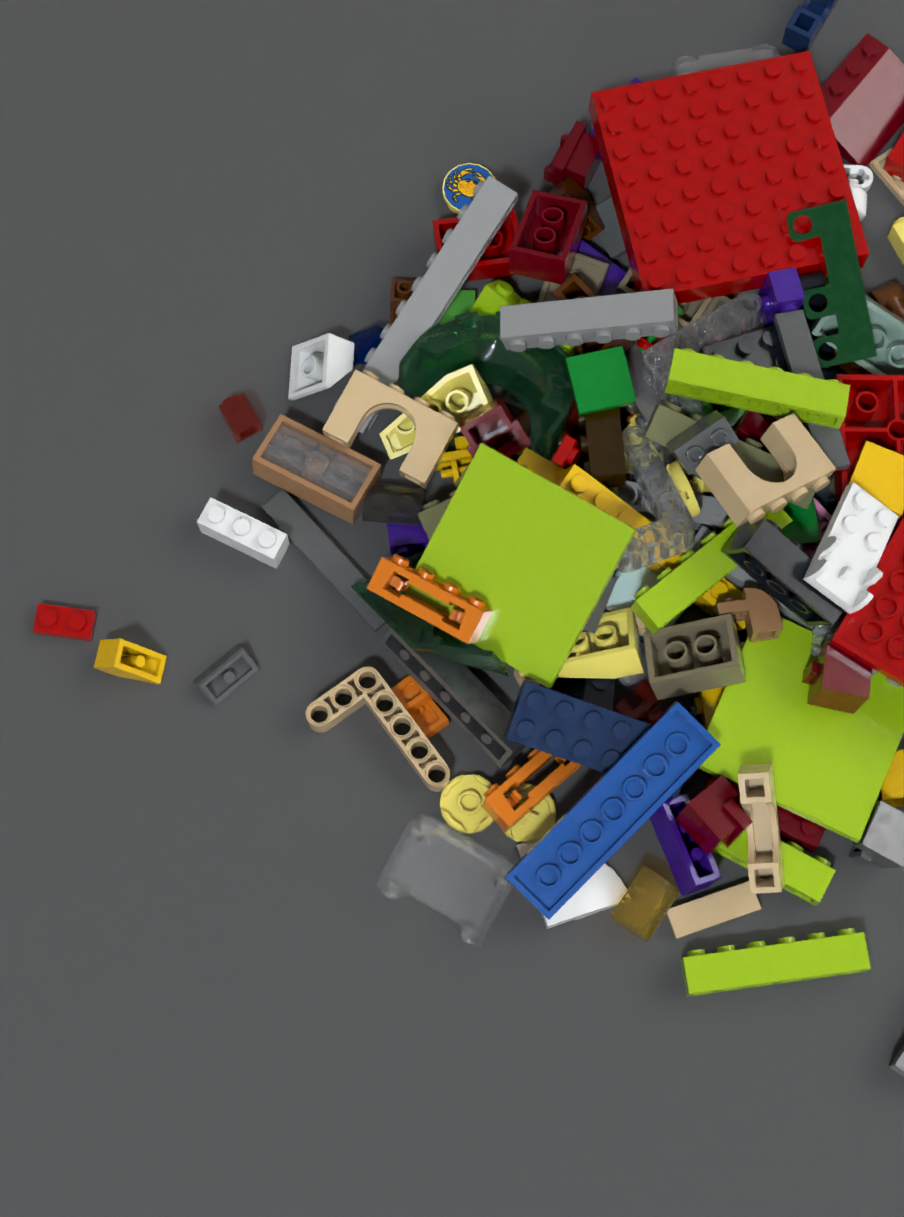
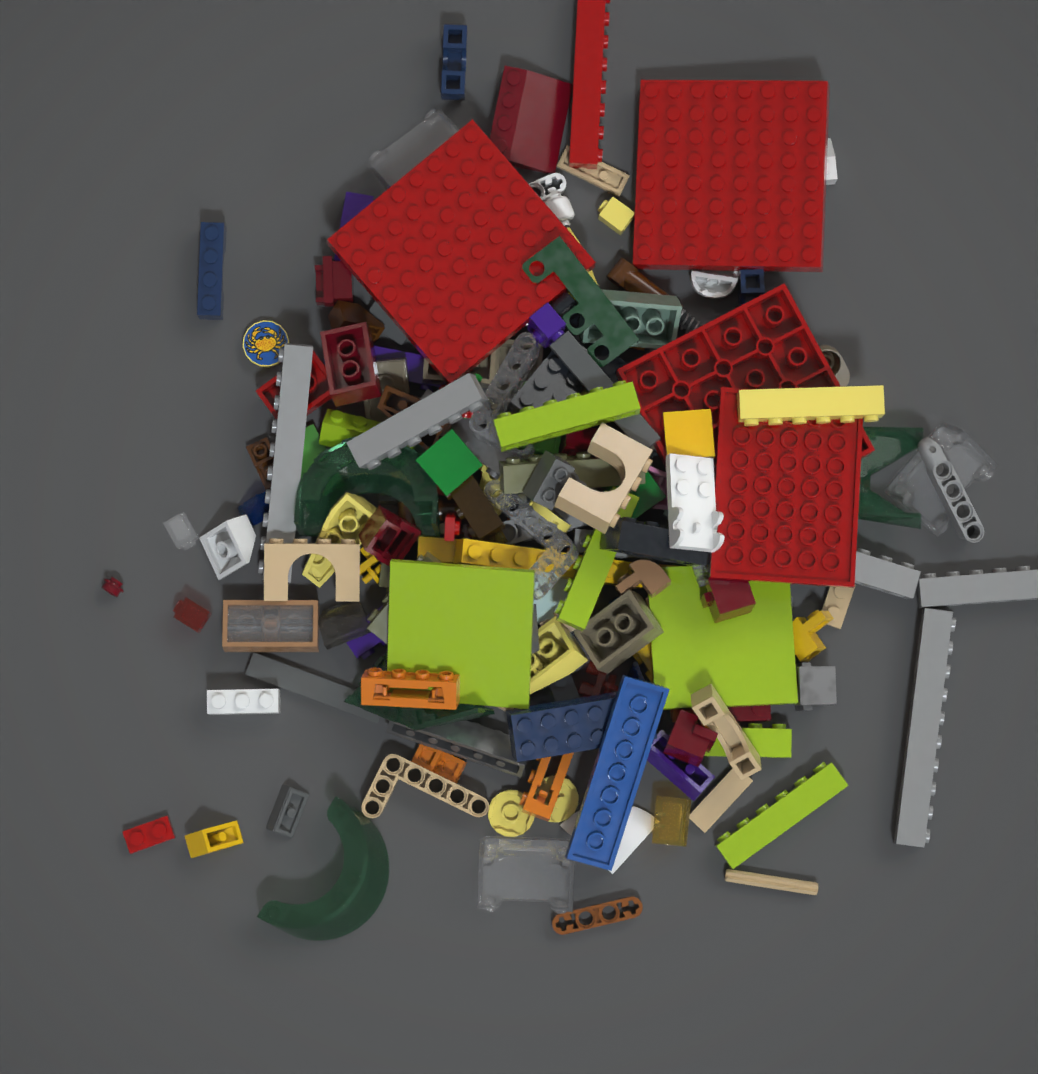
camera: 30 degrees left, 10 degrees up
(174, 349) = (112, 586): none -> dark red plate
(248, 798) = (355, 893): none -> clear green windscreen
(277, 328) = (181, 531): none -> clear brick
(441, 105) = (210, 279): none -> dark blue arch
(504, 972) = (598, 919): none -> dark orange beam
(725, 1035) = (772, 882): none -> tan axle

